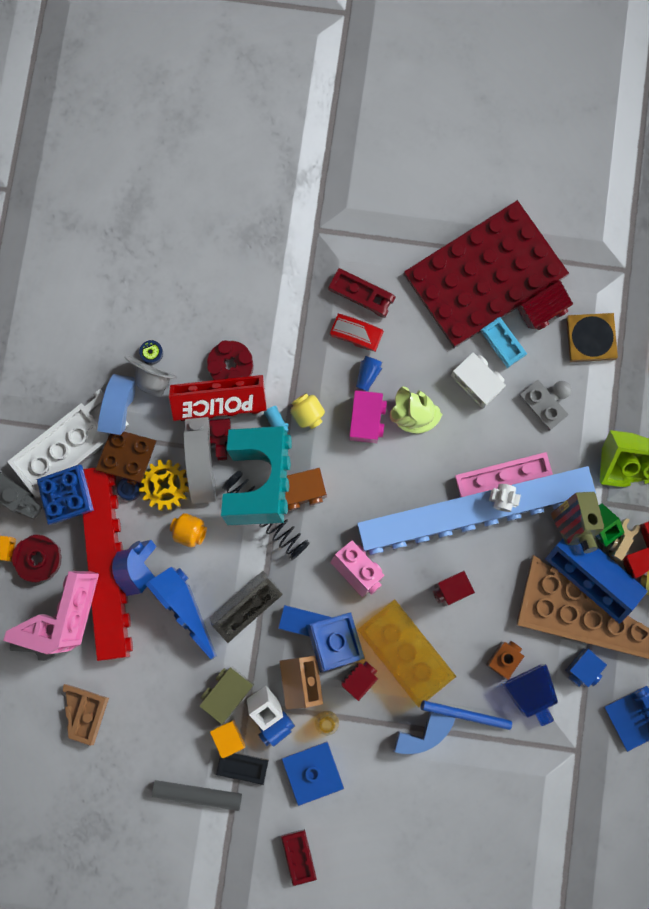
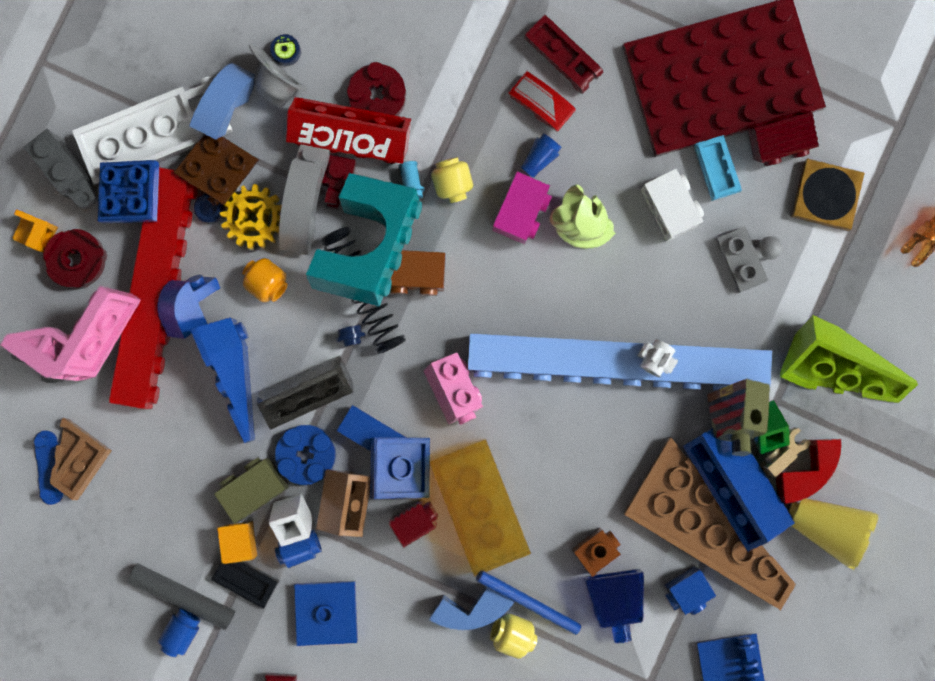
camera: 15 degrees right, 5 degrees up
(57, 715) = (45, 448): none -> blue piece
(204, 824) = (179, 633): none -> blue brick
(250, 665) = (291, 465): none -> blue plate
(266, 552) = (350, 335): none -> dark blue plate
(327, 715) = (366, 554): clear yellow cone -> none
(453, 589) = (560, 448): dark red brick -> none
(462, 745) = (513, 636): none -> light yellow head
(504, 473) = (667, 328): bright pink plate -> none

